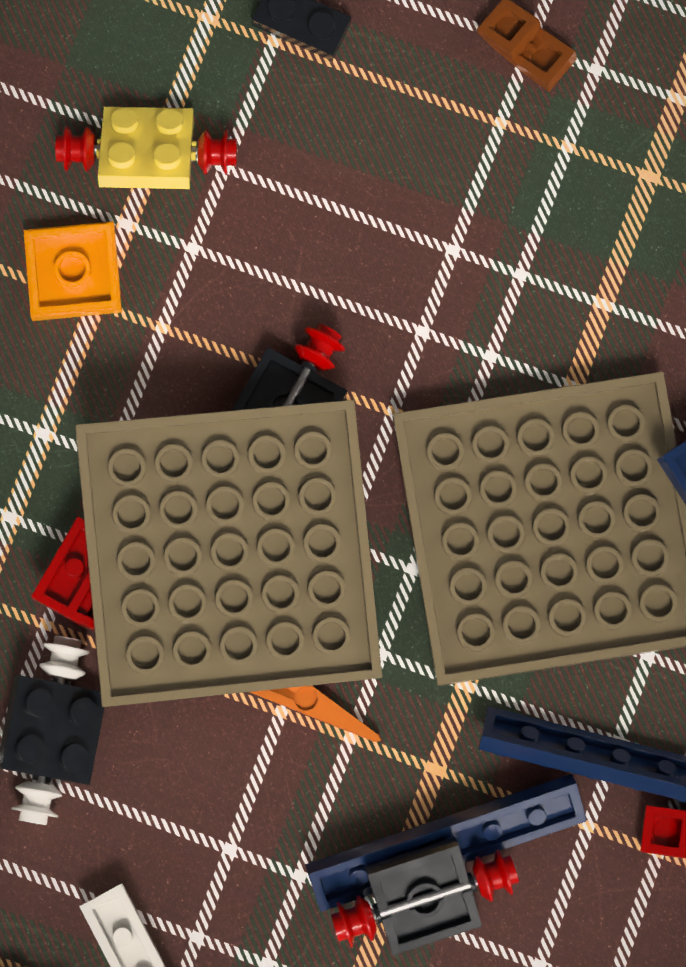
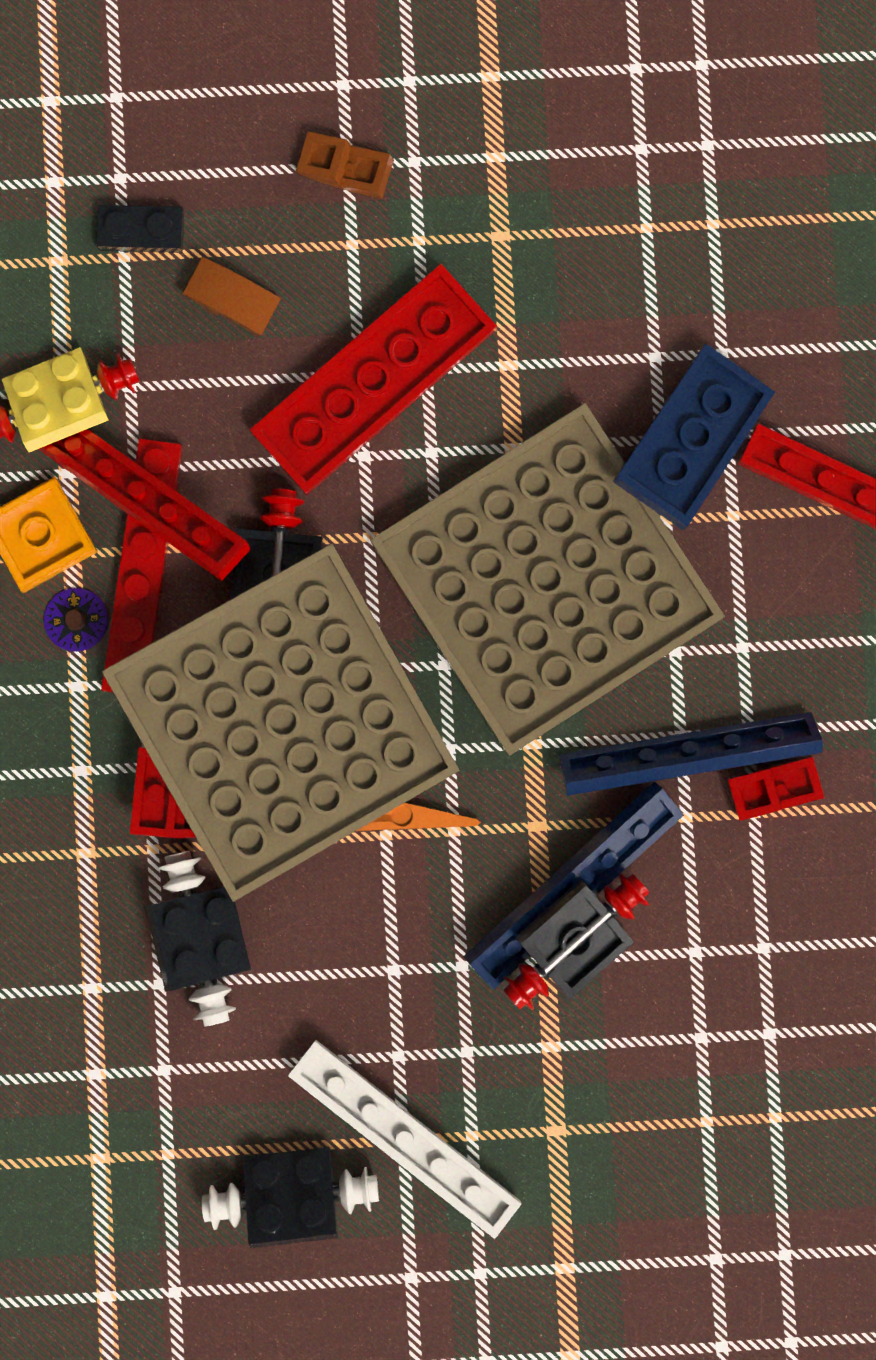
camera: 25 degrees left, 5 degrees up
(71, 368) = (75, 619): none -> piece
(168, 328) = (141, 565): none -> red plate
(194, 283) = (150, 501): none -> red plate
(360, 121) = (230, 296): none -> dark orange slope
(464, 260) = (373, 379): none -> red plate

